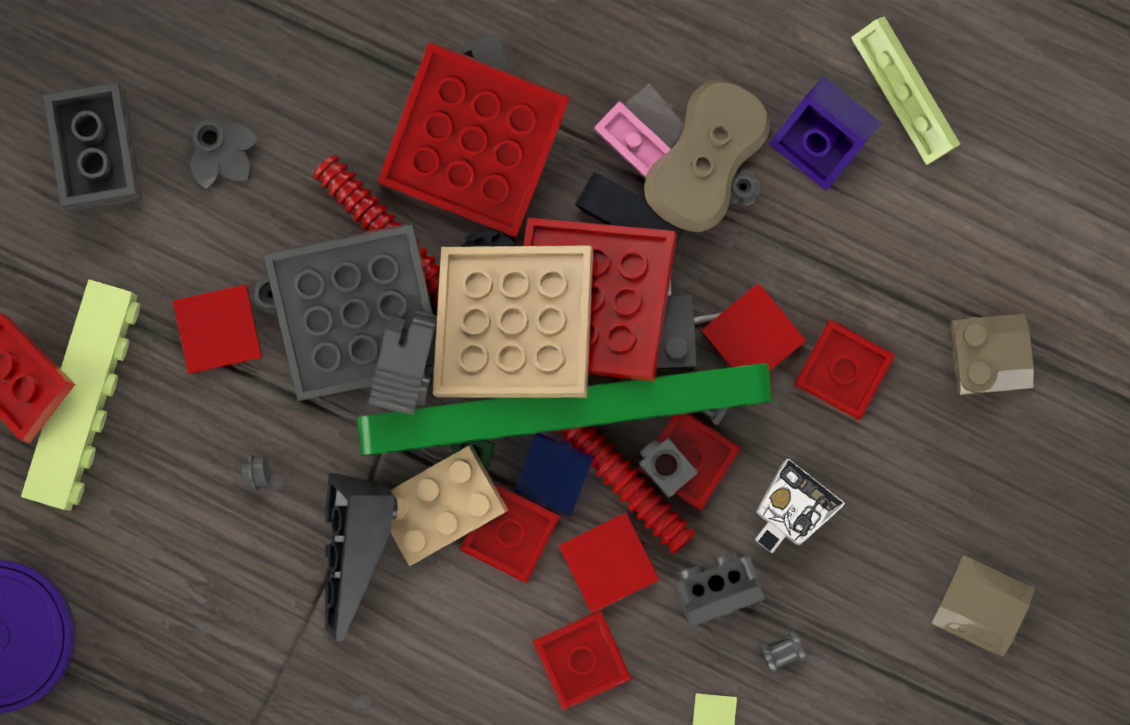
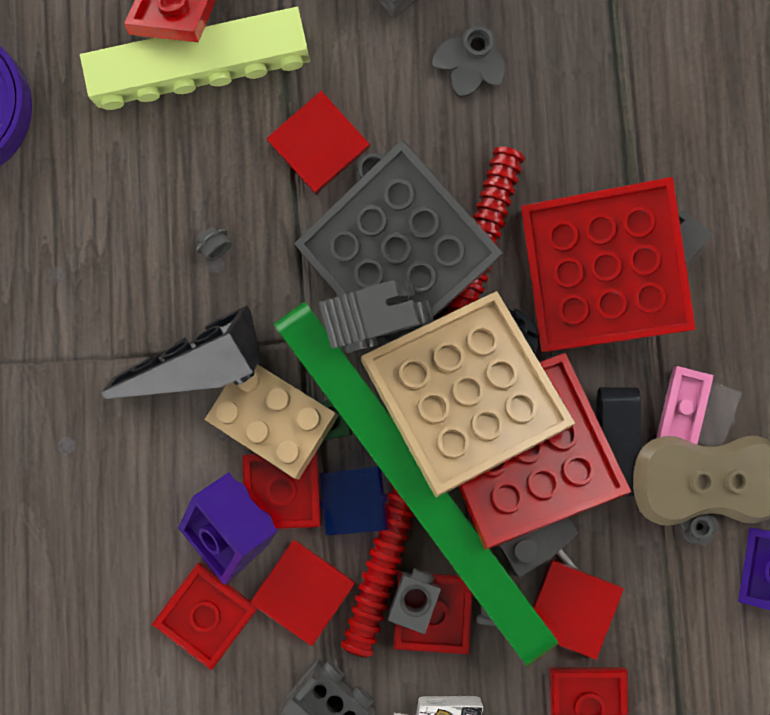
camera: 65 degrees right, 0 degrees up
(515, 596) = (226, 527): none -> dark purple slope

